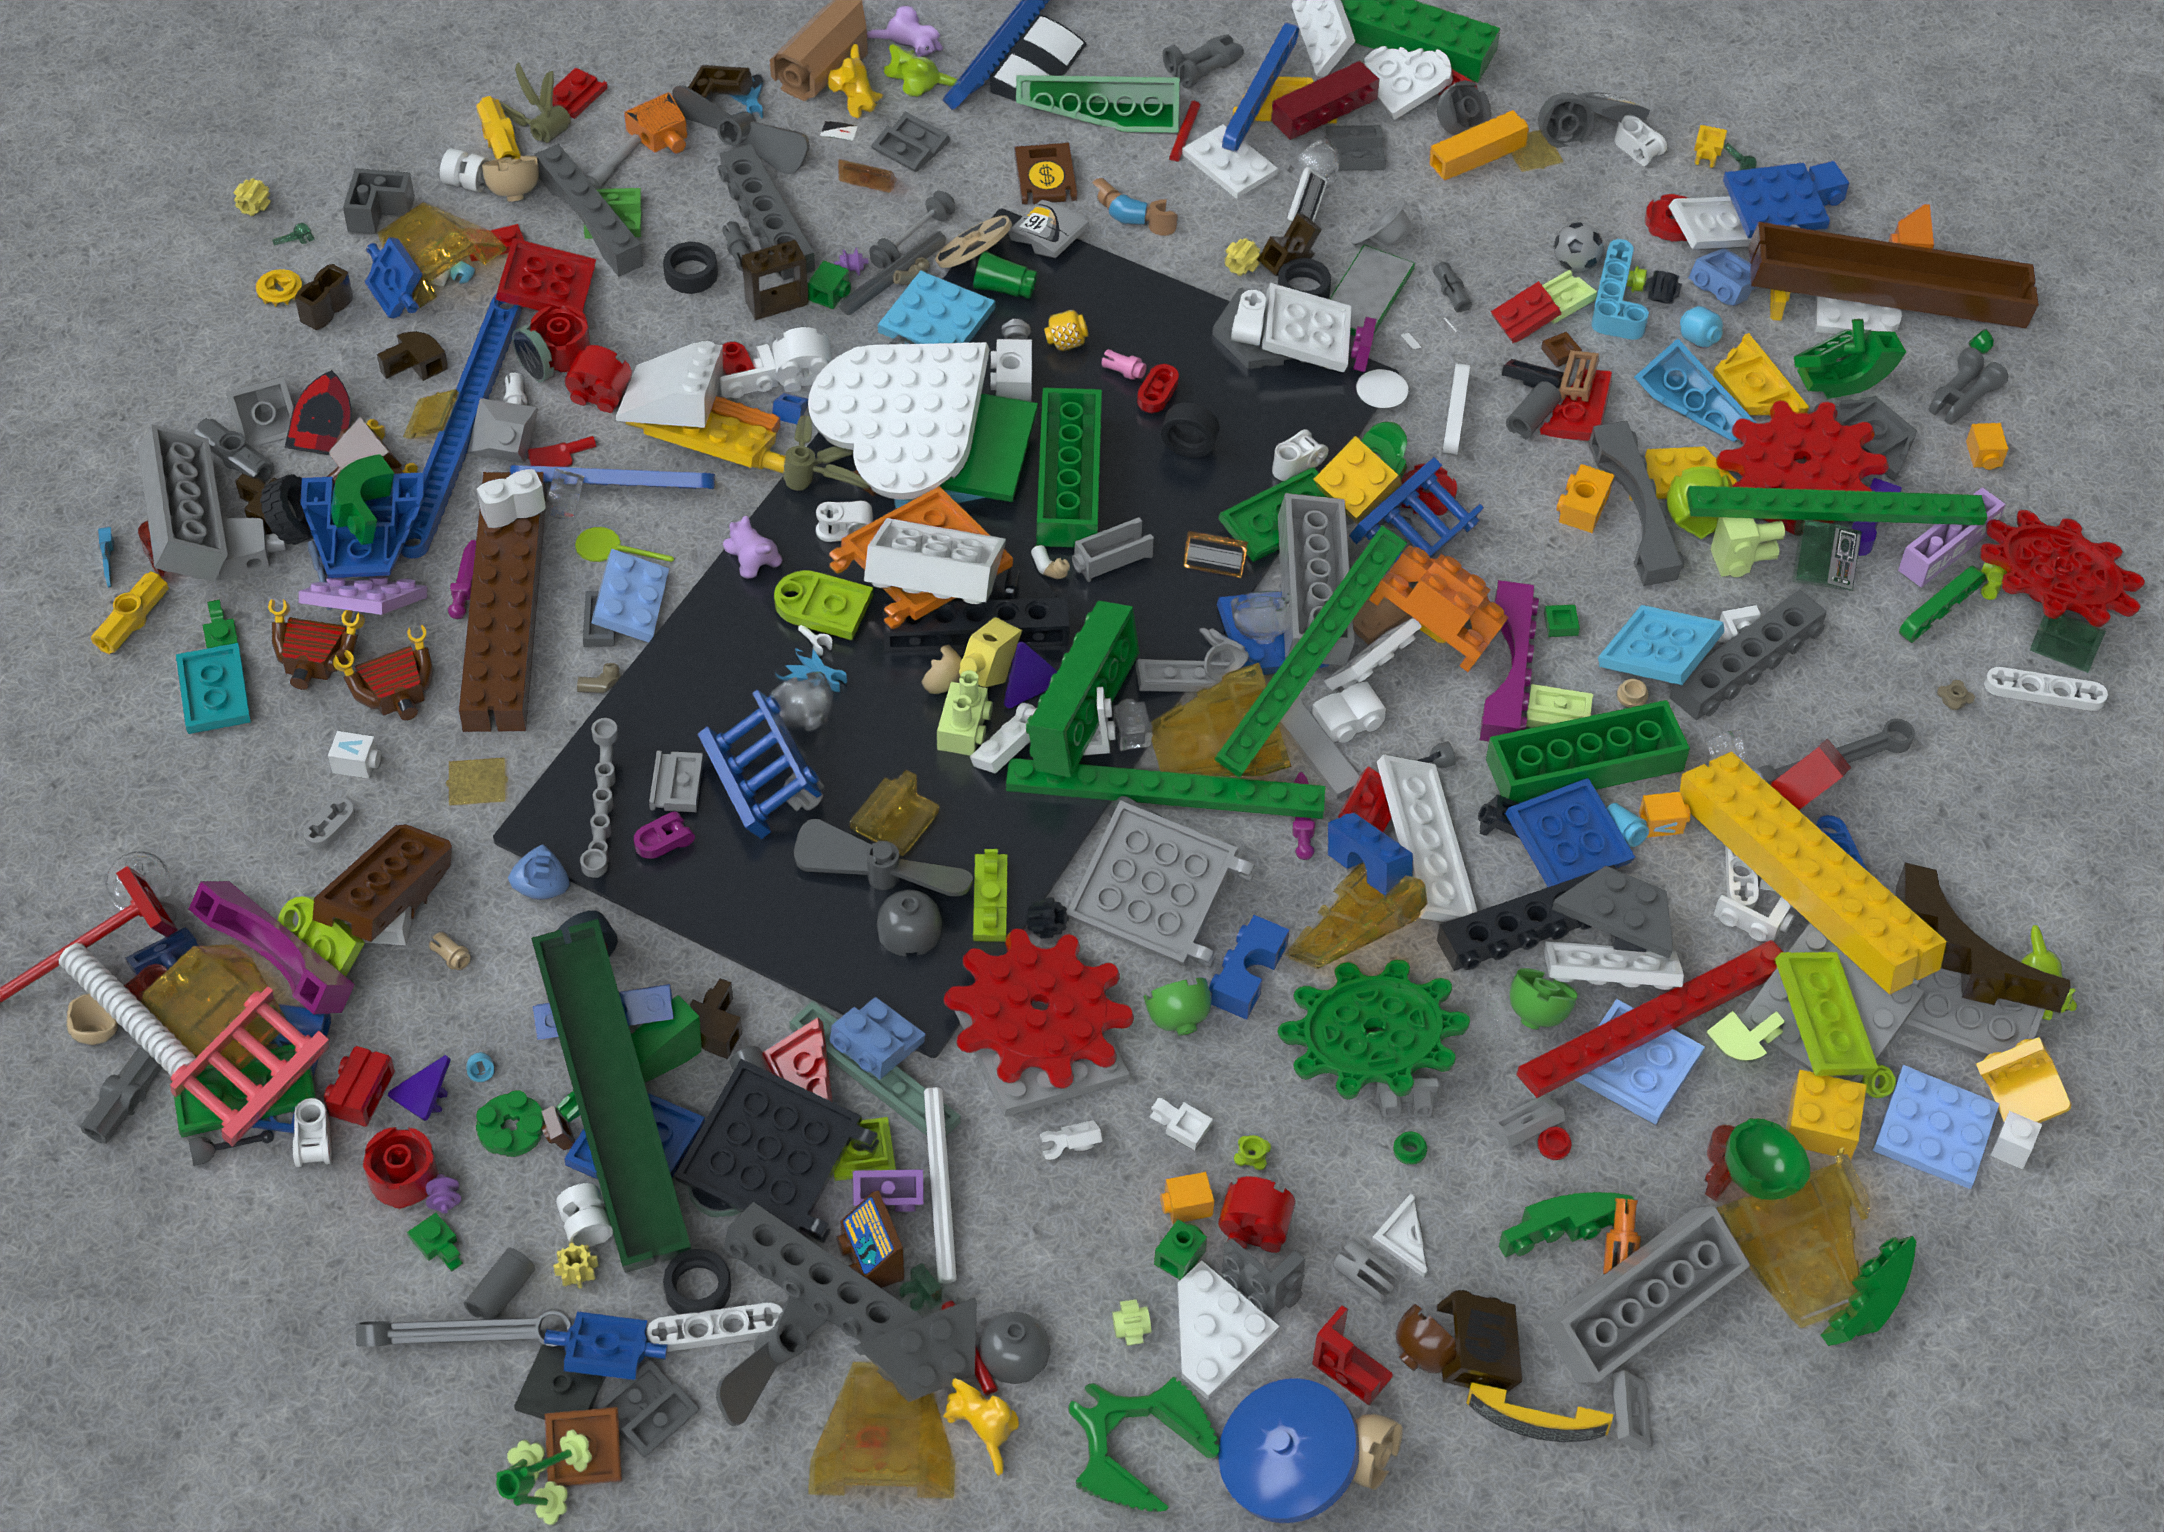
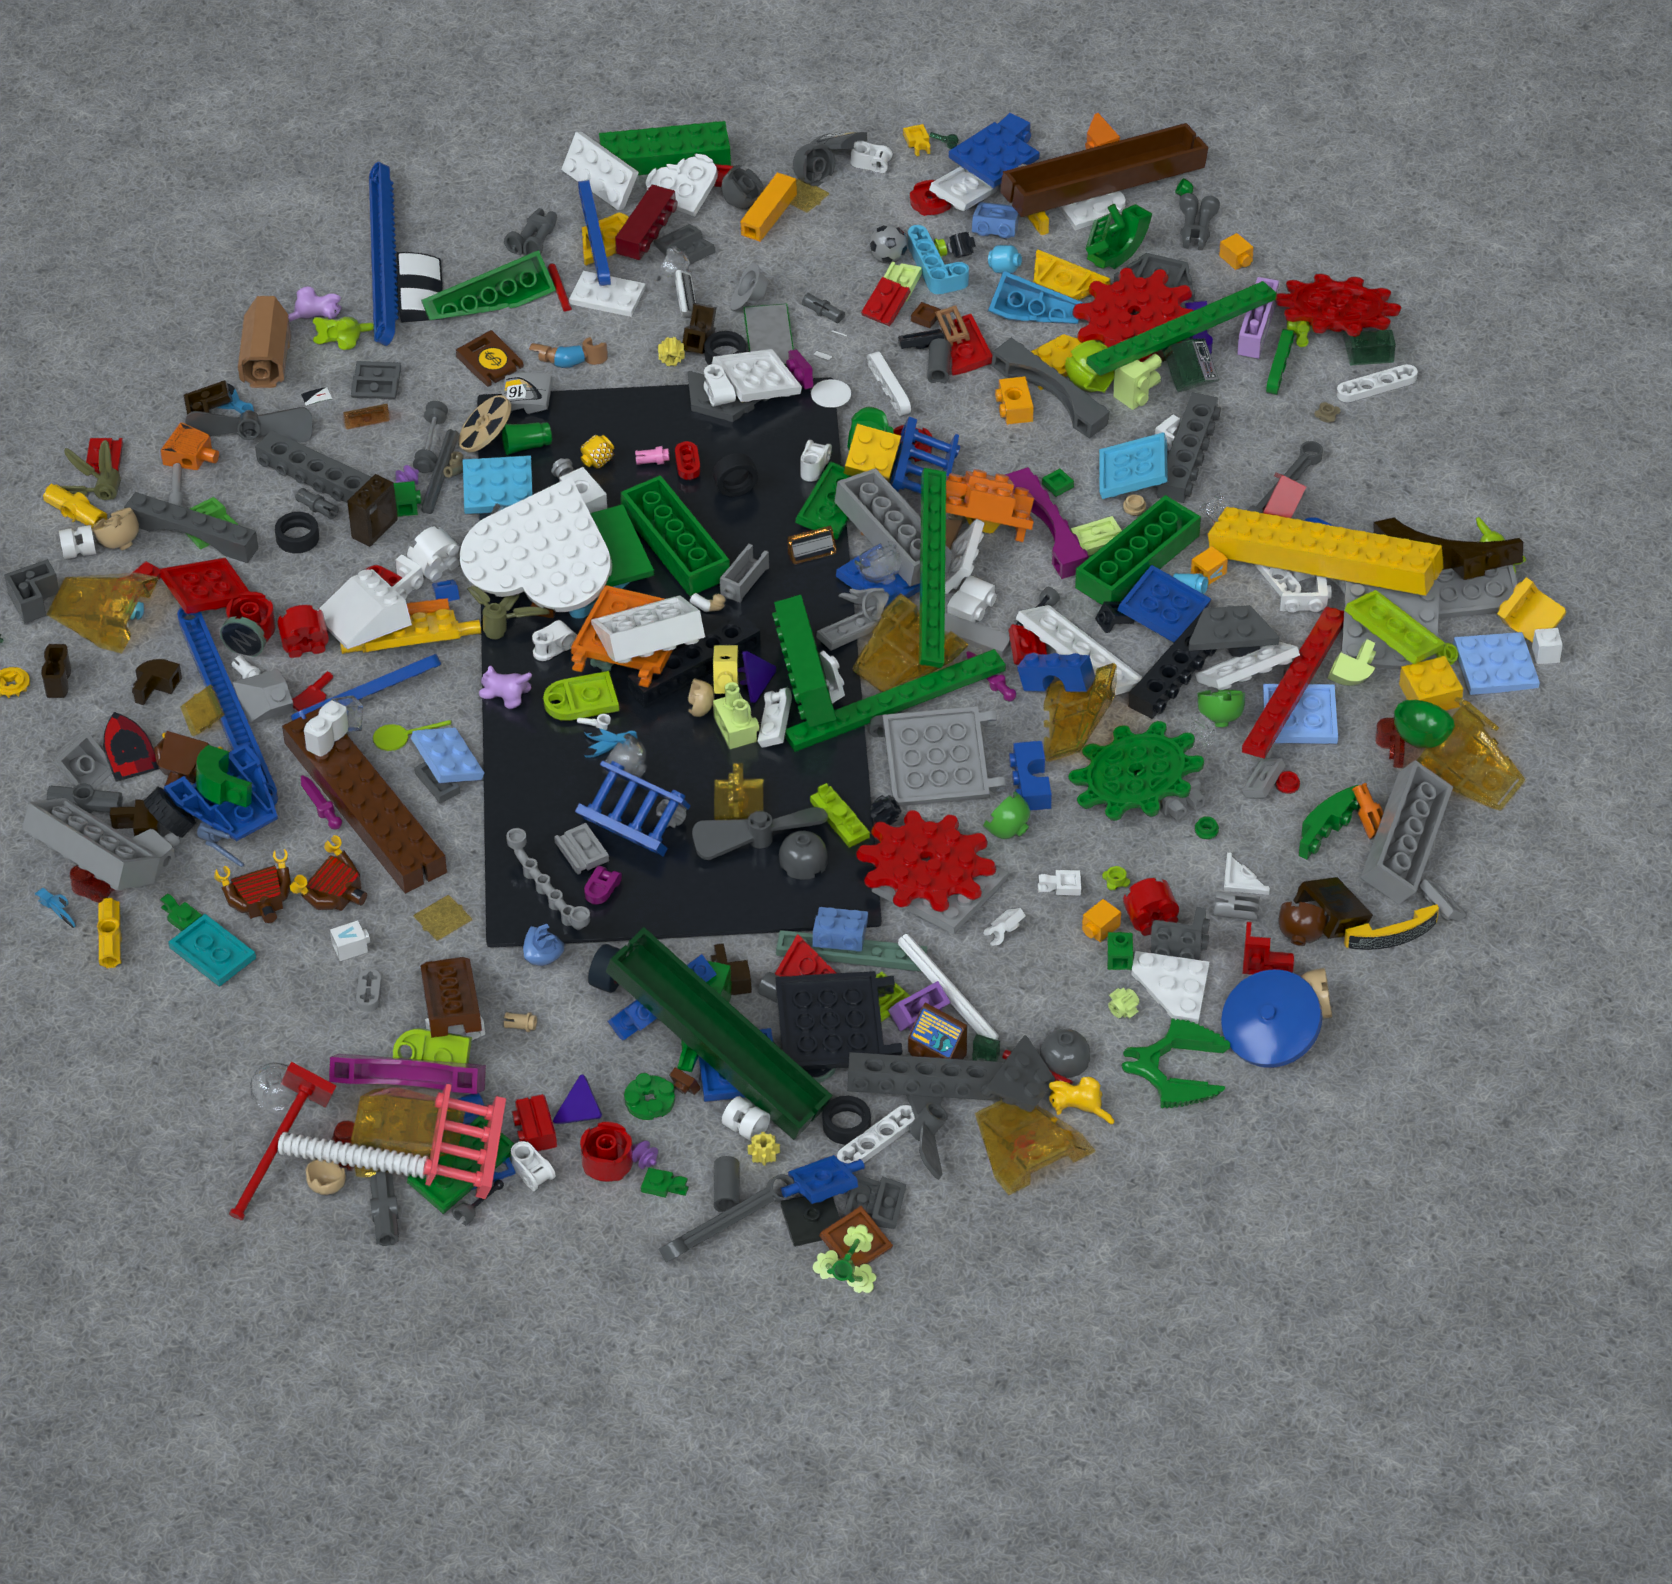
camera: 30 degrees left, 5 degrees down
(163, 952) = (335, 1112): dark blue plate -> none
(367, 596) = (269, 839): lavender plate -> none
(393, 277) = (96, 635): blue plate -> none
(472, 1067) = (604, 1071): medium azure hinge -> none
(601, 683) = (472, 819): dark tan arm -> none
(854, 82) = (305, 355): yellow animal -> none
(1132, 719) = (849, 668): clear brick -> none
(1877, 1294) = (1531, 765): green slope -> none

